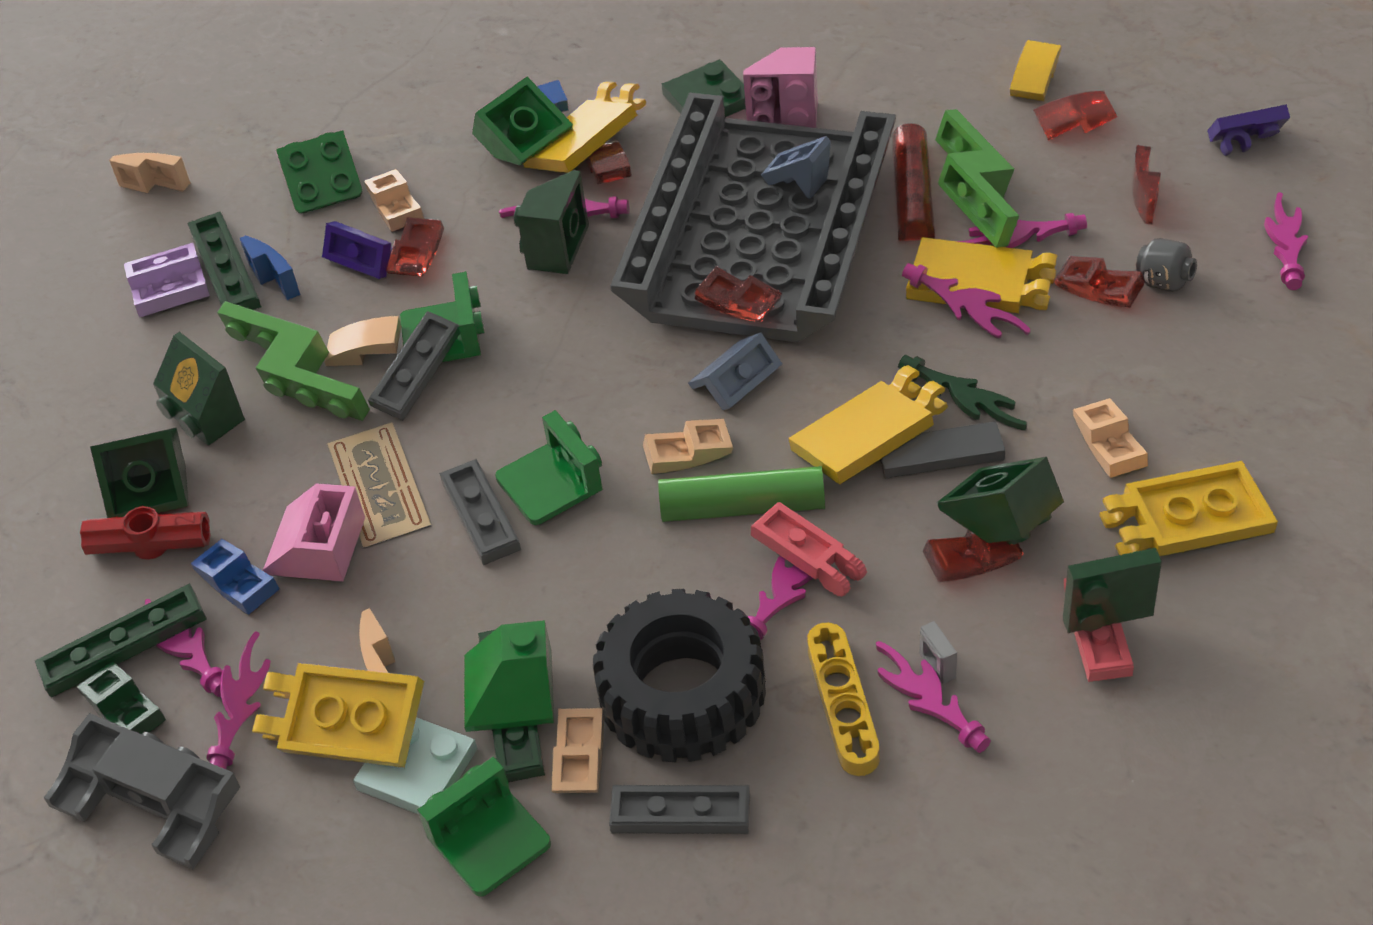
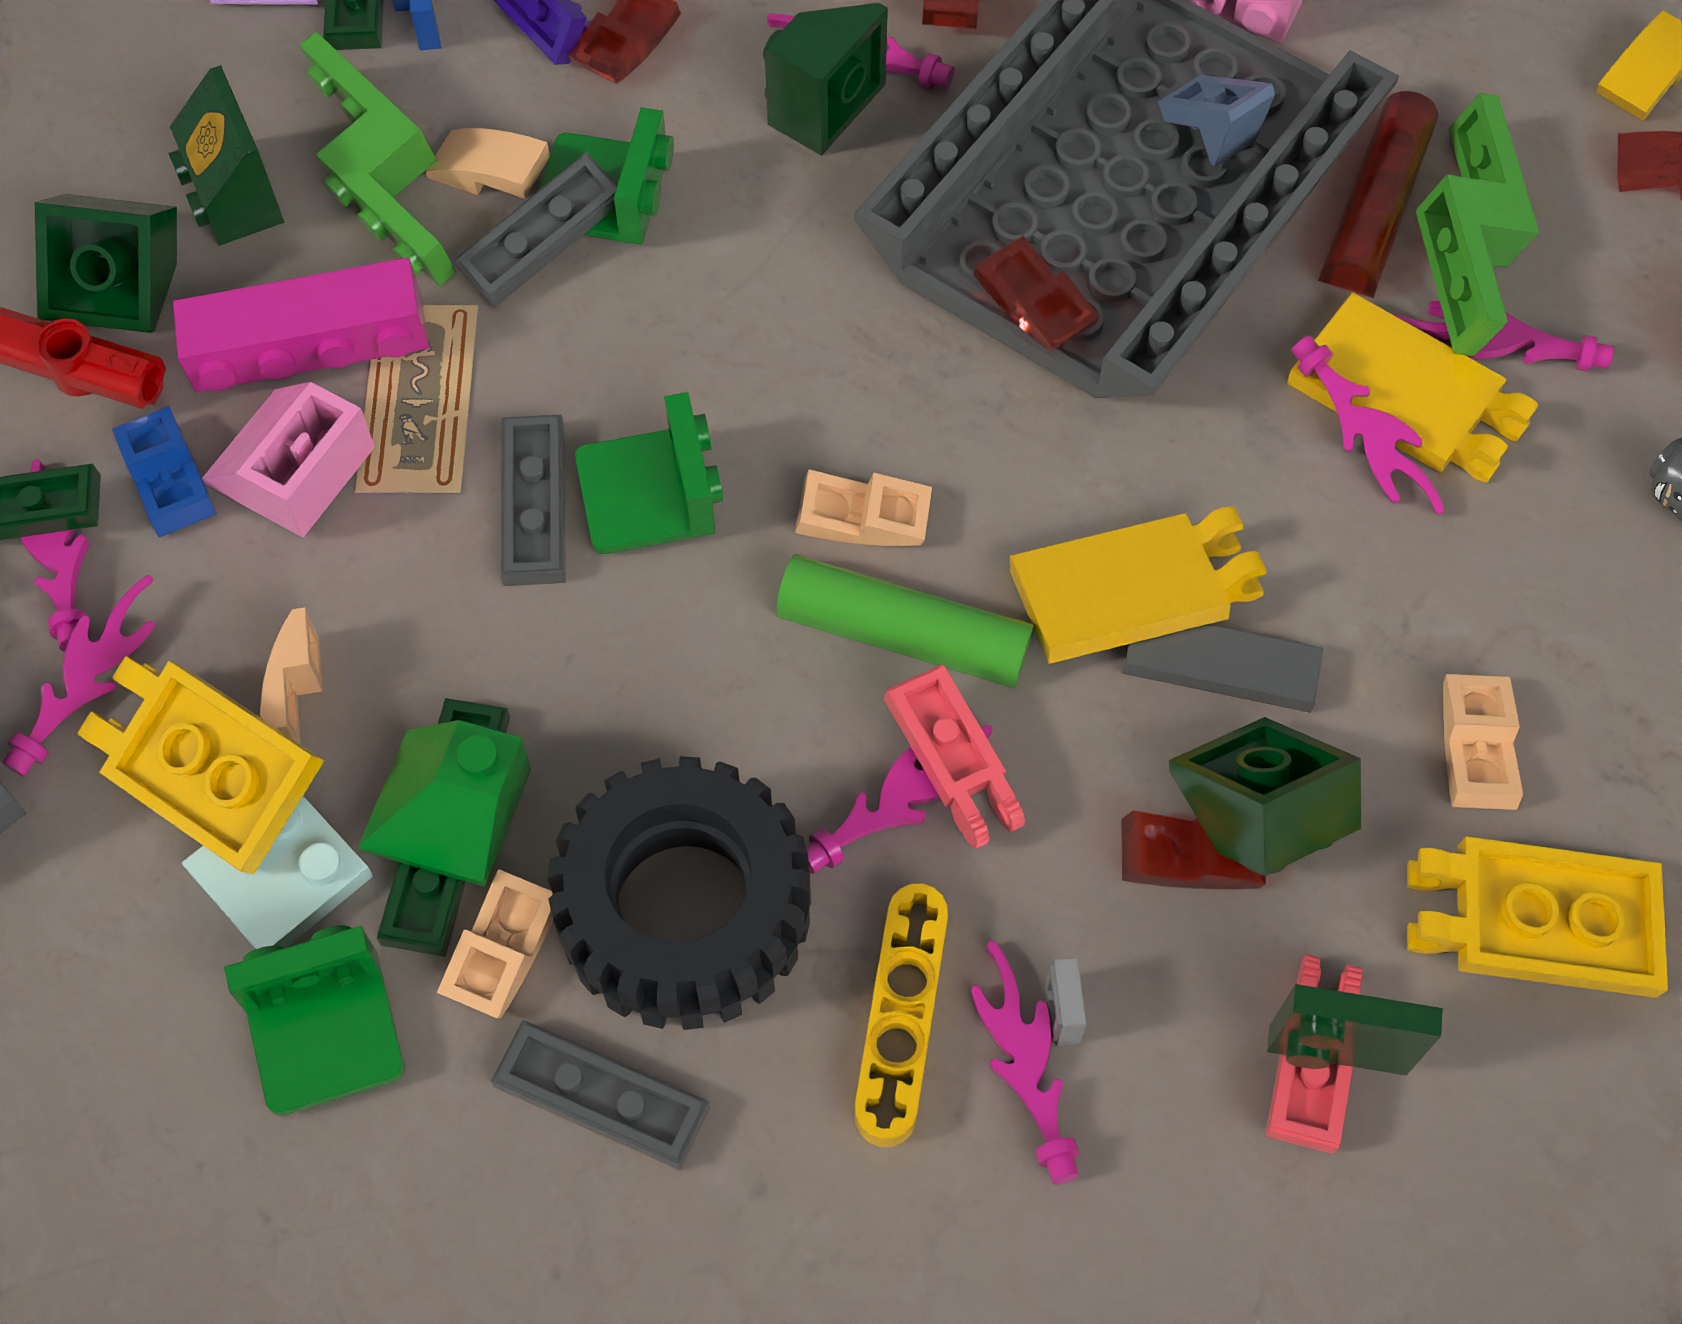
camera: 15 degrees right, 15 degrees up
(288, 465) = (300, 325): none -> dark pink brick
(738, 370) = (986, 414): sand blue panel -> none
(967, 395) = (1296, 585): dark green piece -> none
(1091, 280) = (1577, 465): clear red slope -> none

